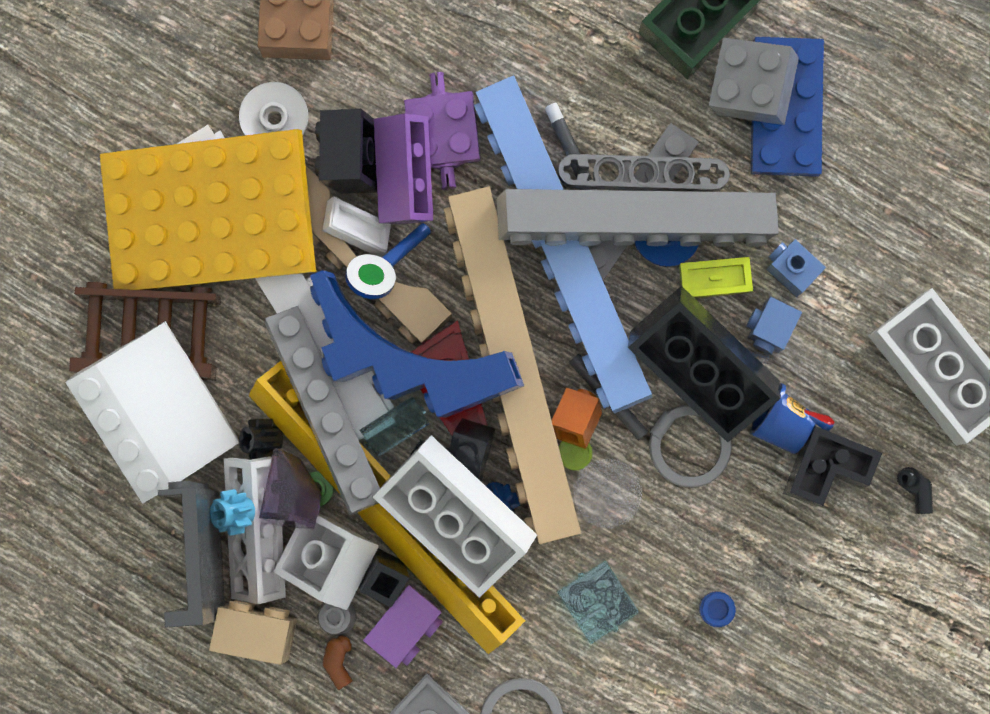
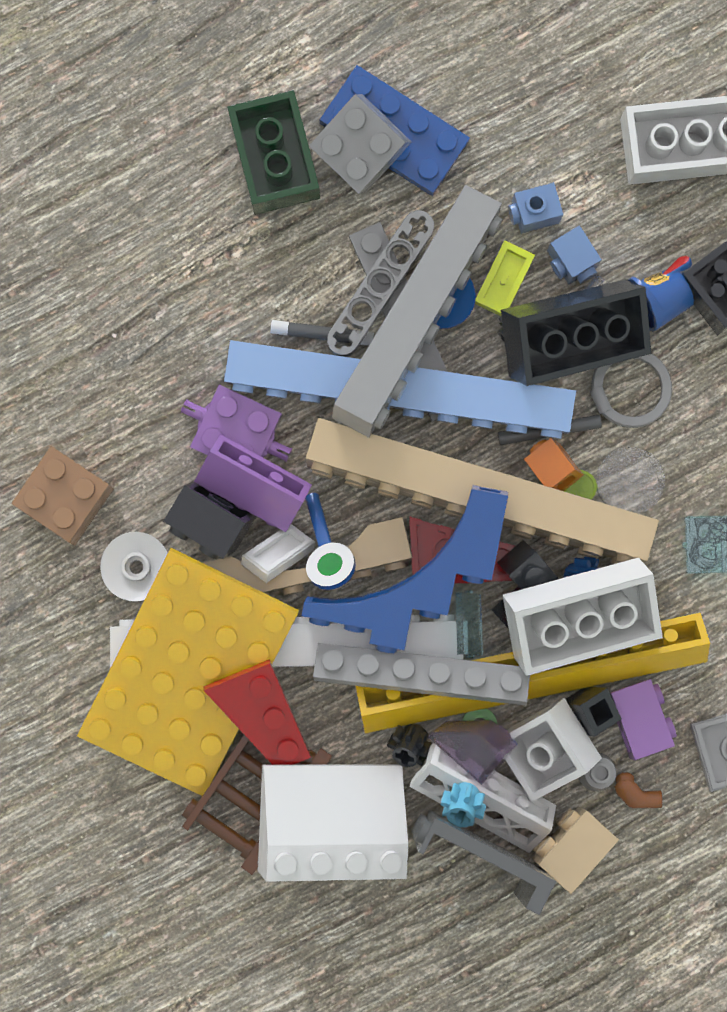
camera: 60 degrees left, 0 degrees up
(209, 294) = (261, 712): none -> red wing

